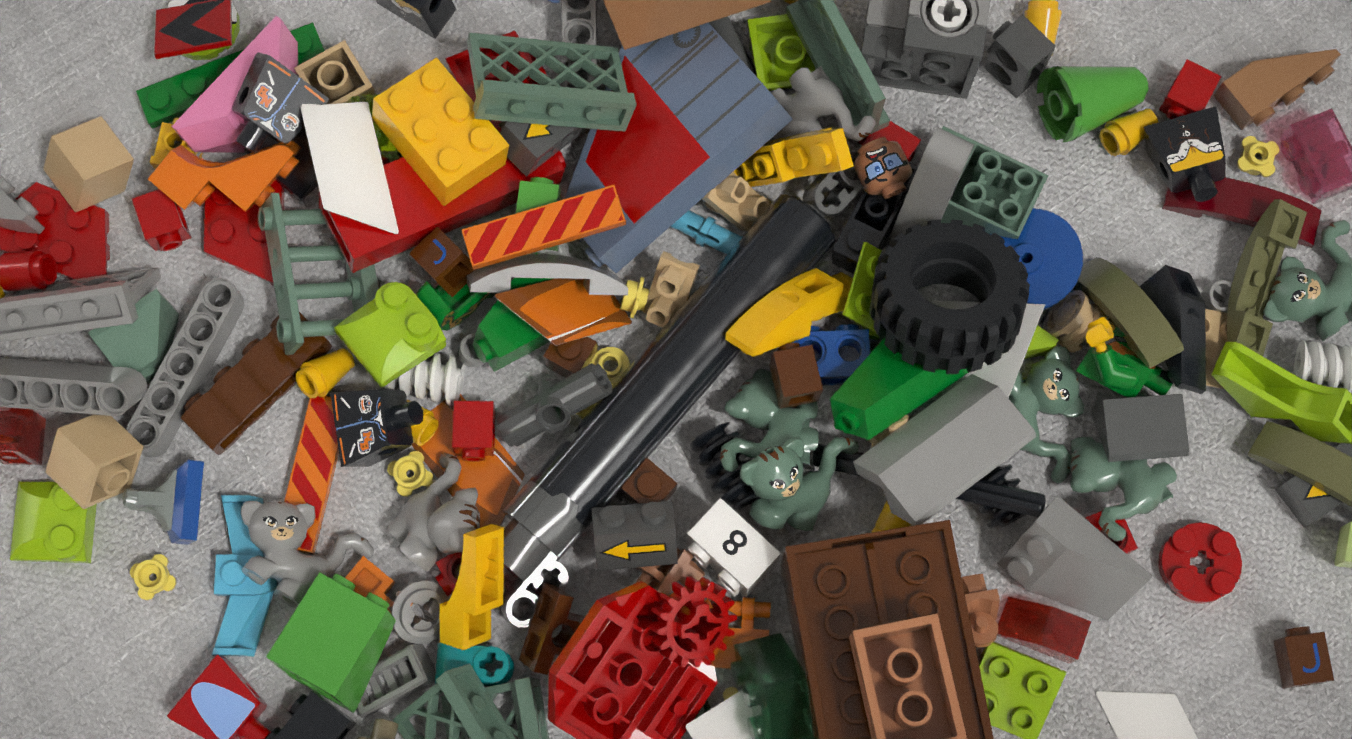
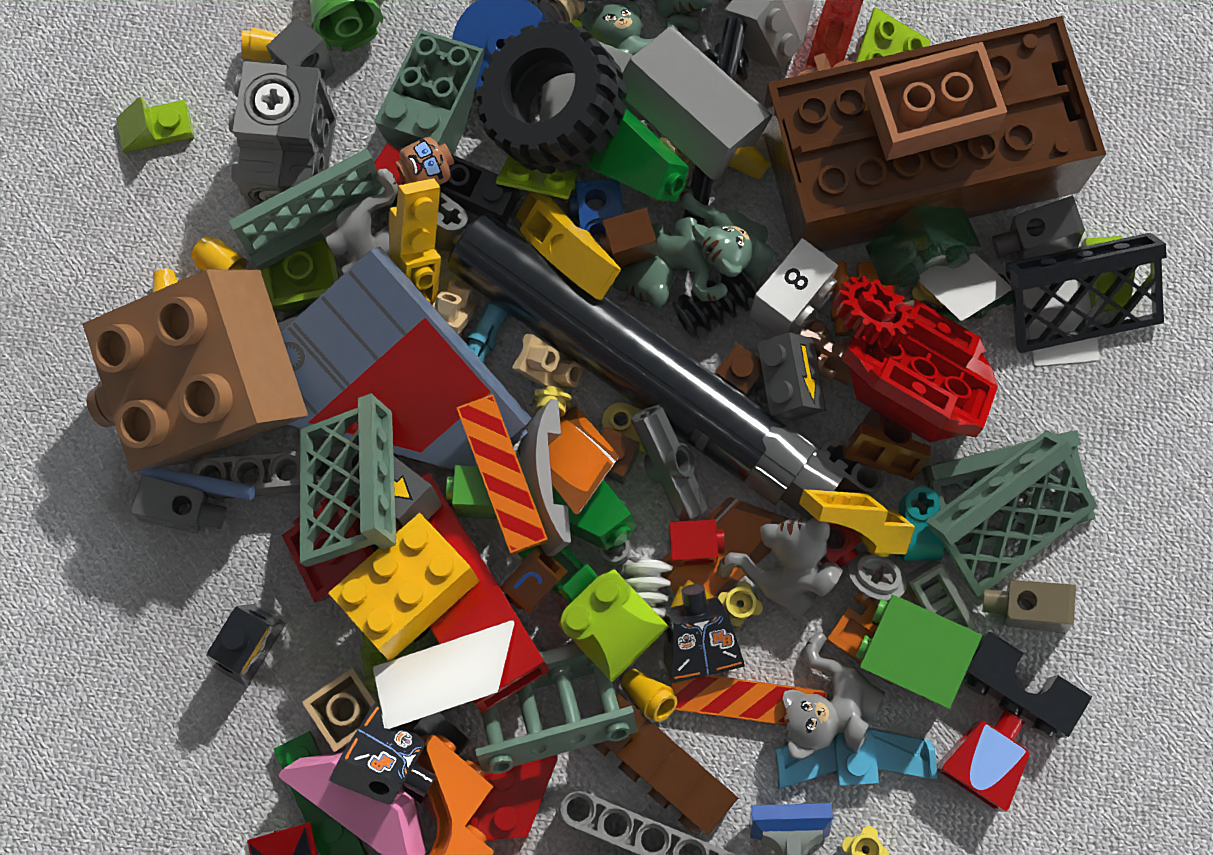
camera: 95 degrees left, 0 degrees up
(933, 181) = (448, 109): light grey beam -> none

